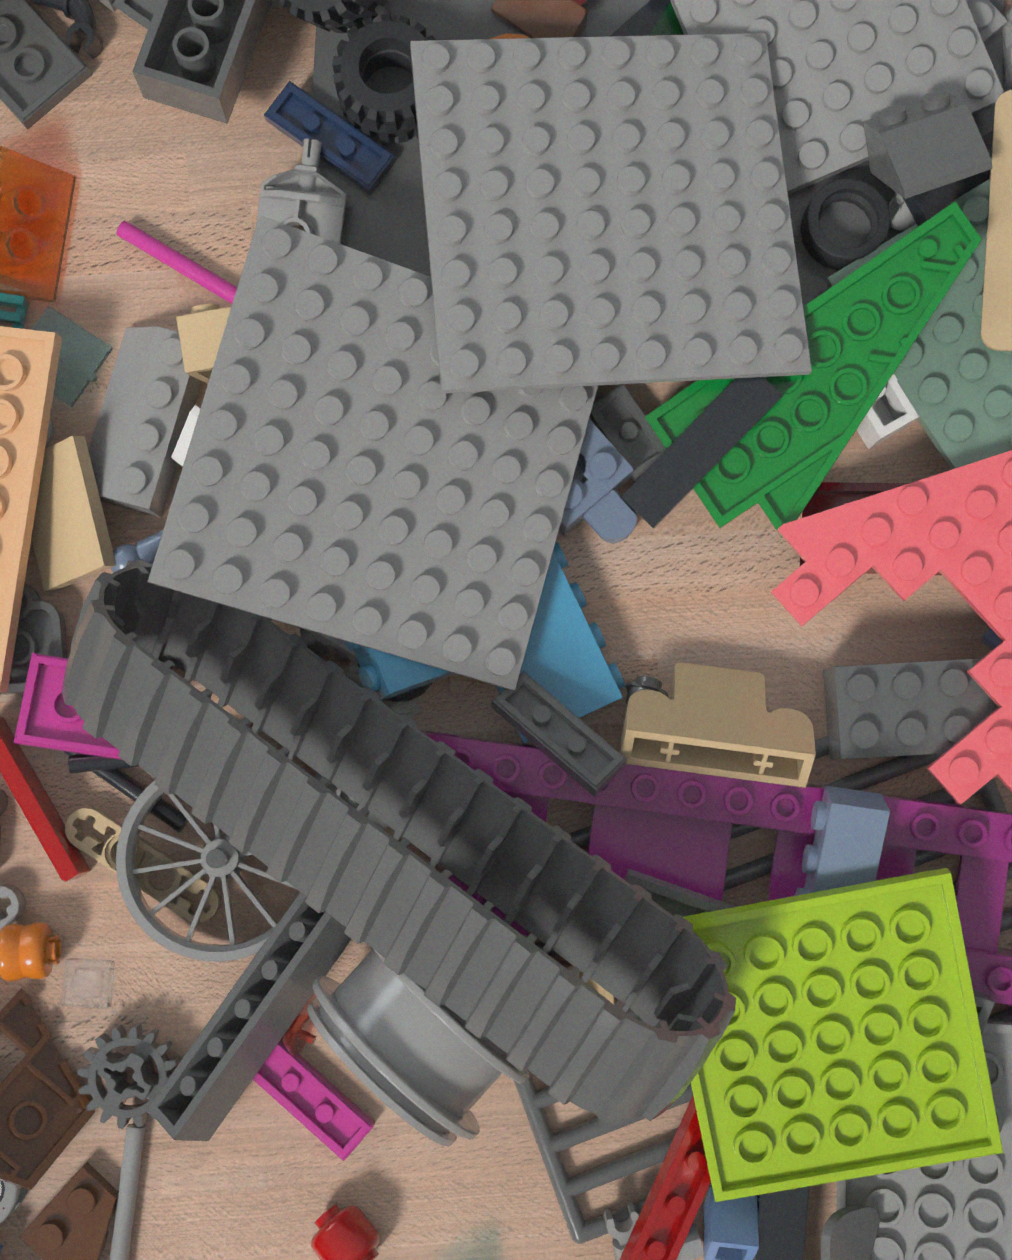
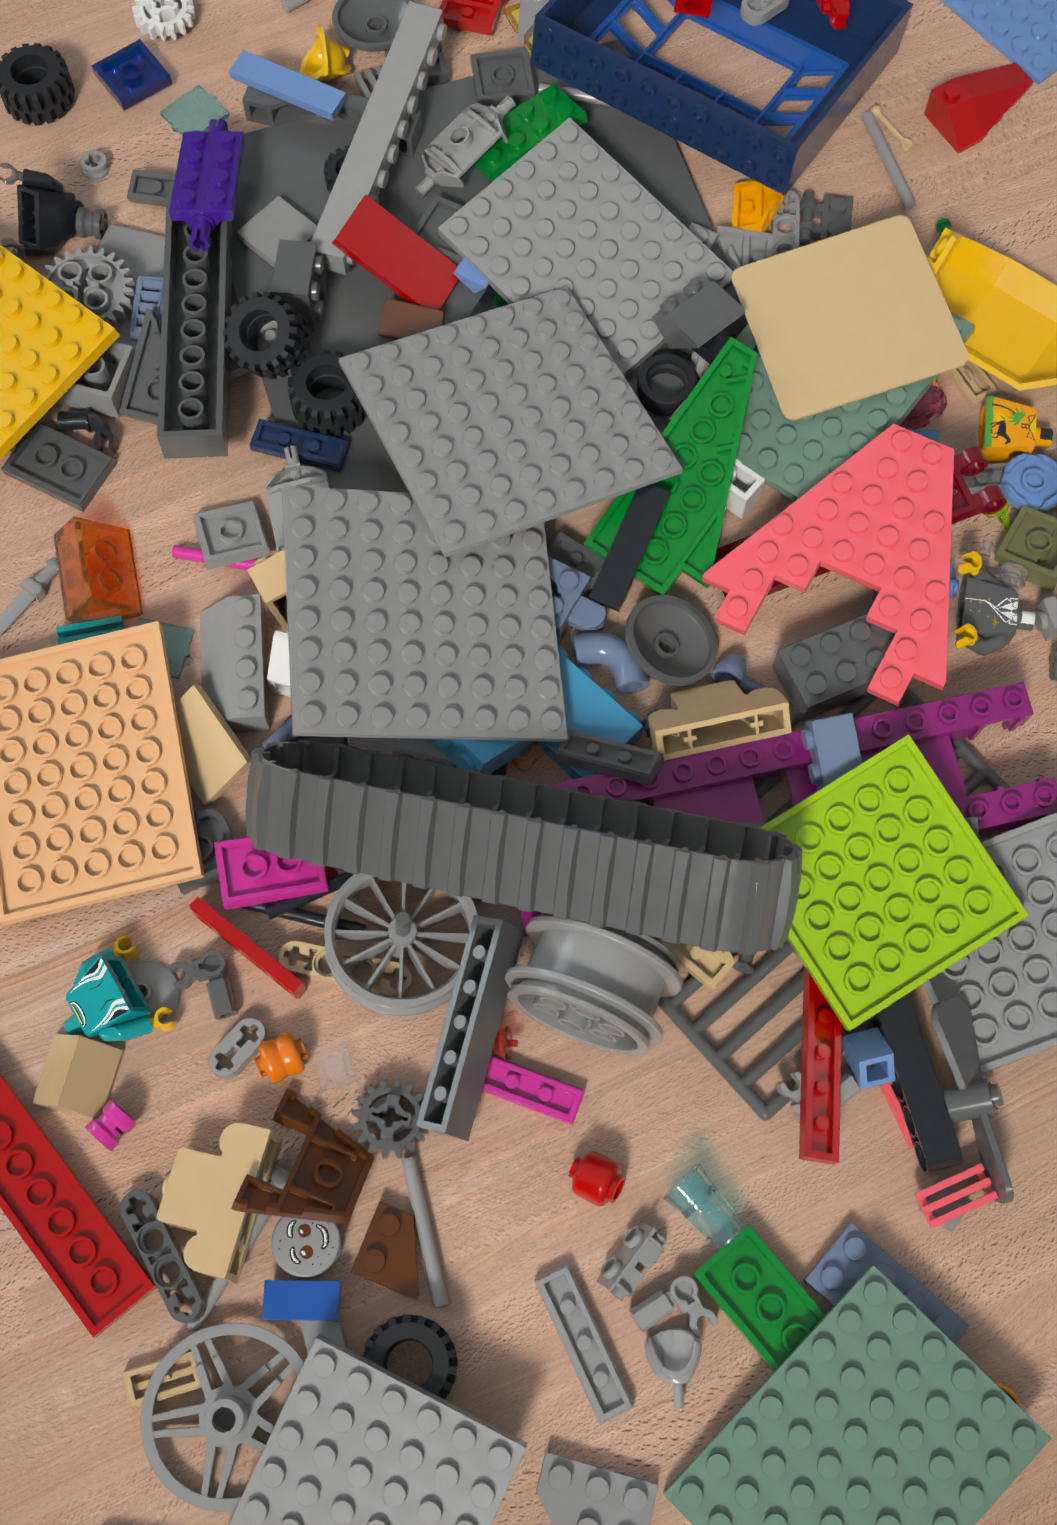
camera: 20 degrees left, 15 degrees down
(199, 233) = (231, 534): none -> light grey tile
(627, 580) = (613, 653): none -> sand blue cylinder
(726, 586) = (677, 629): none -> dark grey dish
(770, 658) = (734, 668): none -> sand blue bar

